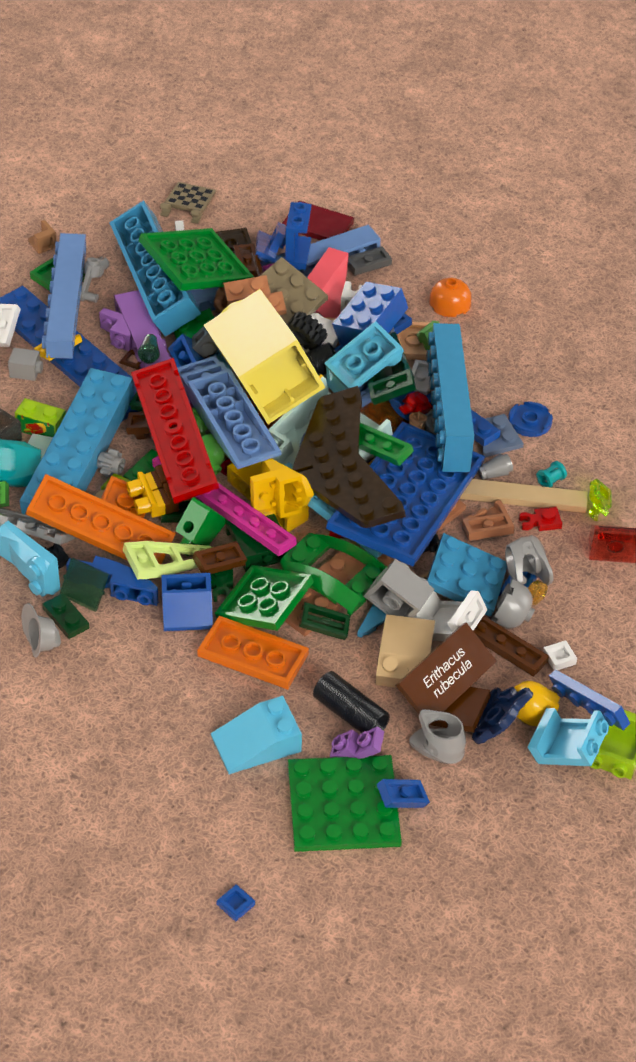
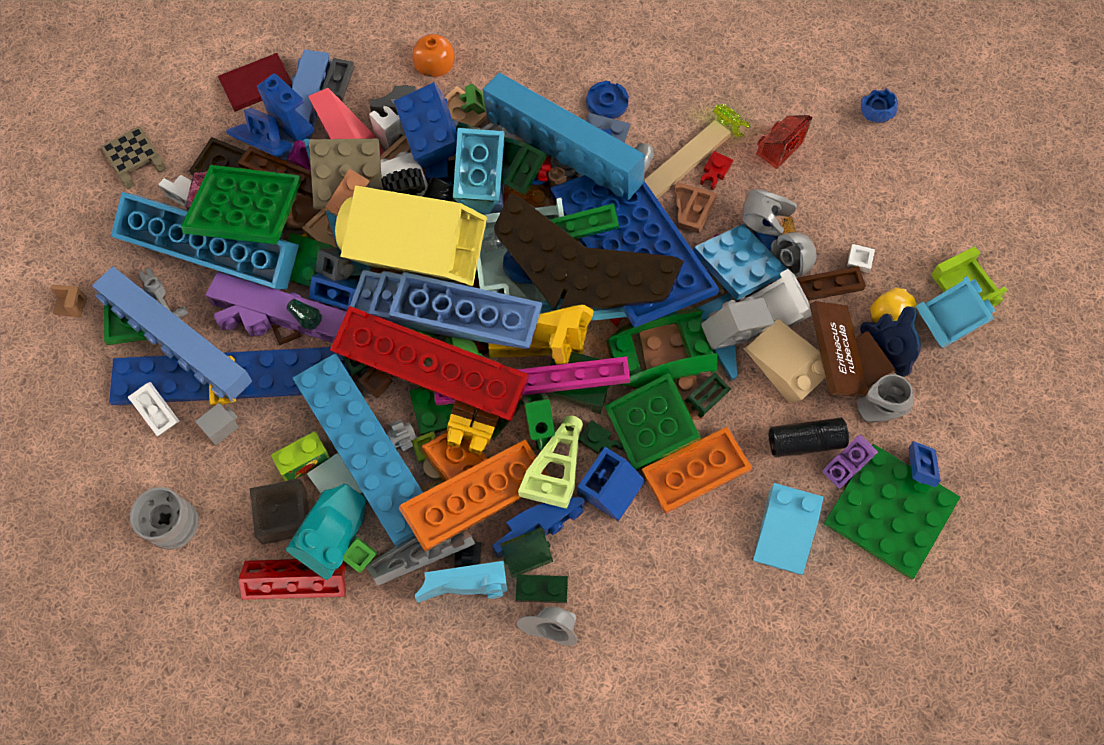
camera: 50 degrees left, 20 degrees up
(220, 558) = (589, 427): reddish brown plate -> none
(235, 902) = (936, 659): blue tile -> none
(243, 288) = (320, 193): nougat plate -> none
(551, 474) = (680, 129): teal bush -> none
(589, 699) = (943, 273): blue plate -> none

